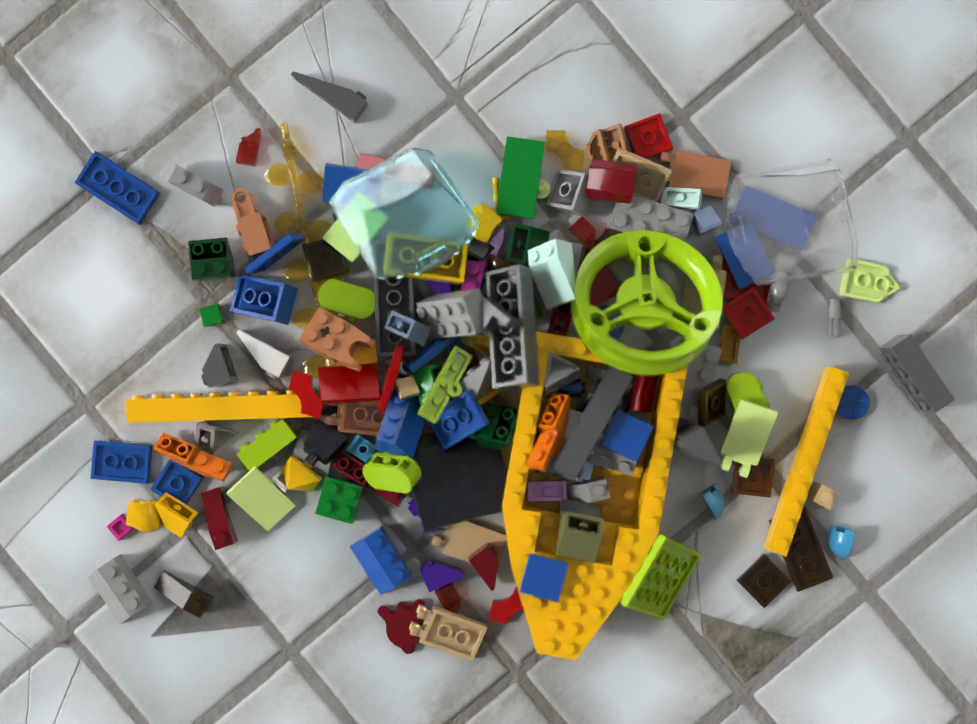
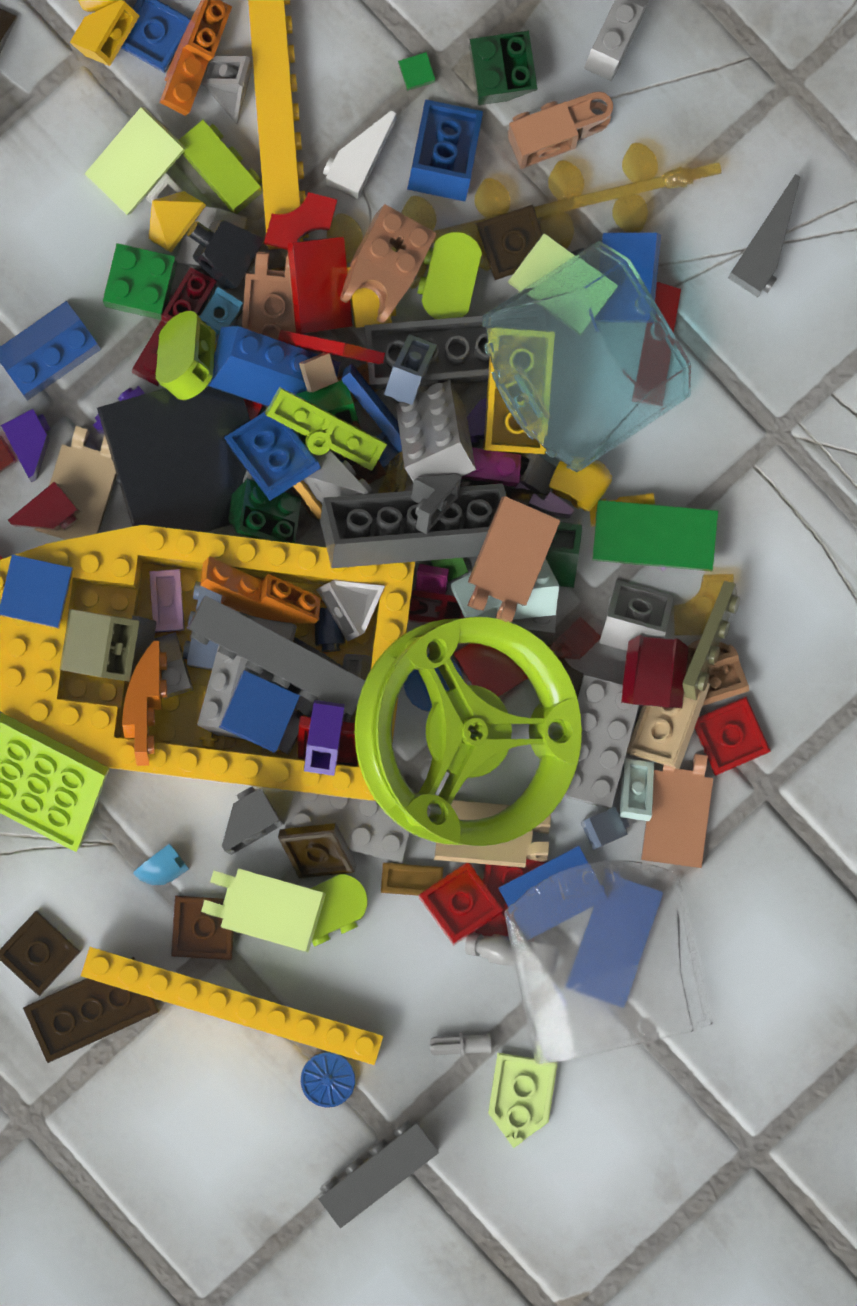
camera: 90 degrees right, 5 degrees down
(218, 519) = (101, 97): dark red slope -> none
(219, 367) = (335, 86): dark grey slope -> none
(249, 149) = (678, 117): clear red slope -> none
(275, 253) = (516, 163): blue tile -> none
(538, 268) = (511, 557): none -> nougat tile
(542, 321) = (432, 579): none -> dark pink tile
(543, 190) = (639, 574): yellowish green tile -> none
(599, 146) = (707, 649): none -> olive plate
(611, 509) = (142, 699): none -> orange slope
(648, 395) = (324, 737): none -> dark purple slope
(822, 495) = (177, 1037): tan brick -> none
(841, 540) = (107, 1071): dark azure brick -> none

